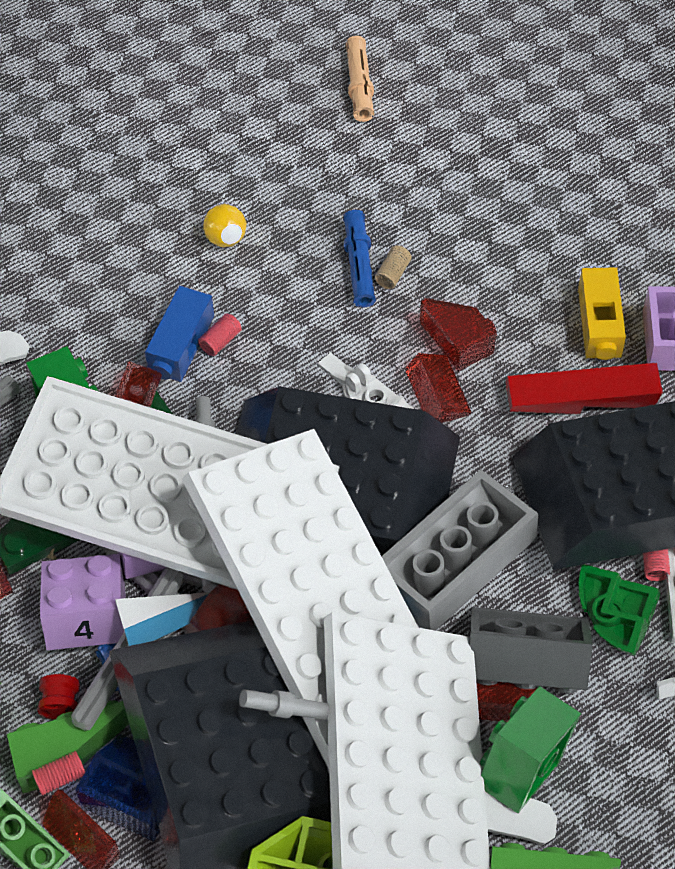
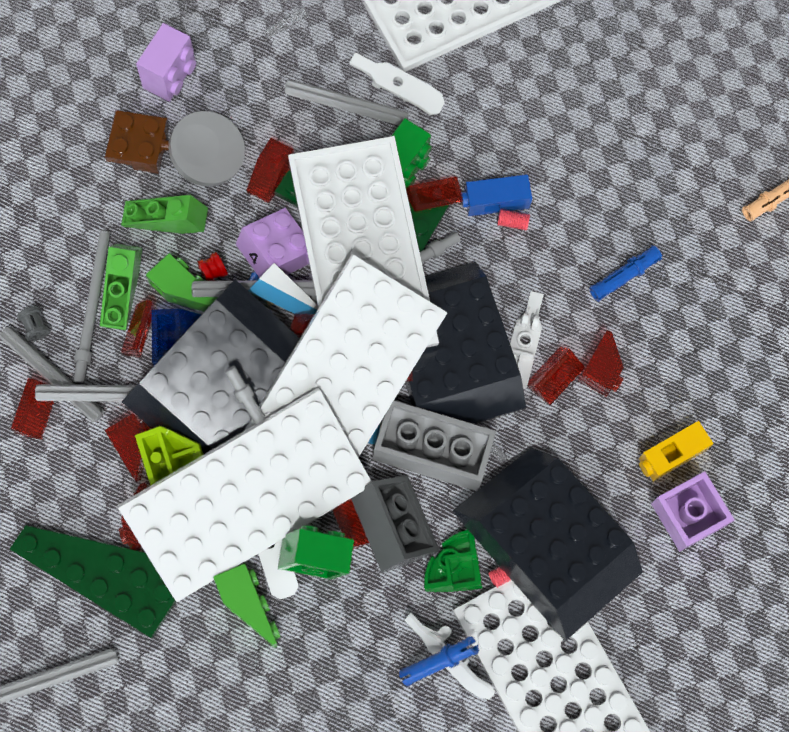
camera: 55 degrees right, 15 degrees up
(58, 773) = (158, 295): coral piece -> none
(224, 225) = (596, 176): yellow piece -> none
(393, 275) = (622, 300): tan piece -> none
(594, 387) = (607, 468): red slope -> none

